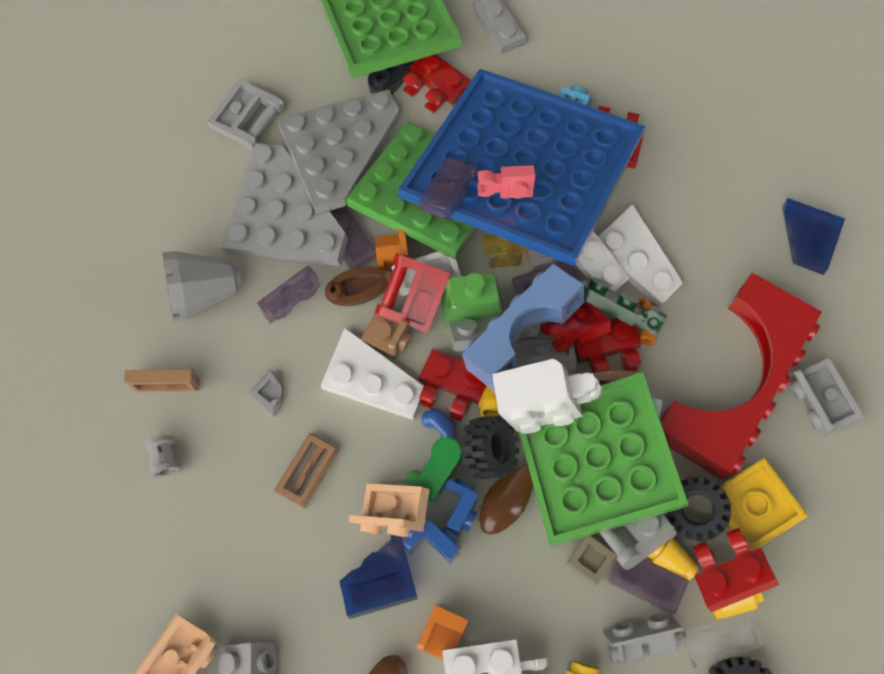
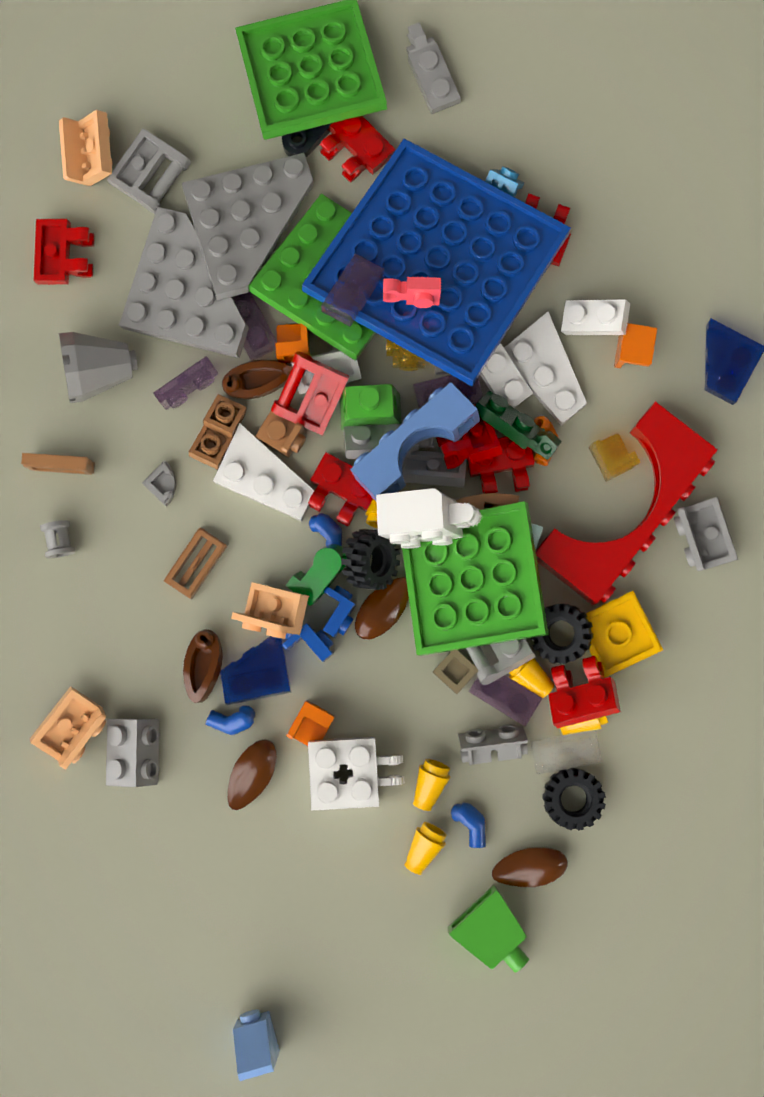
camera: 10 degrees right, 15 degrees up
(156, 187) = (52, 252): none -> red plate
(187, 99) = (86, 148): none -> light nougat bracket
(319, 577) = (202, 665): none -> reddish brown arm
(322, 338) = (217, 431): none -> medium nougat slope
(356, 640) = (234, 723): none -> blue arm
(679, 204) = (595, 317): none -> white plate
(717, 332) = (613, 457): none -> clear yellow panel
(720, 225) = (636, 346): none -> orange panel

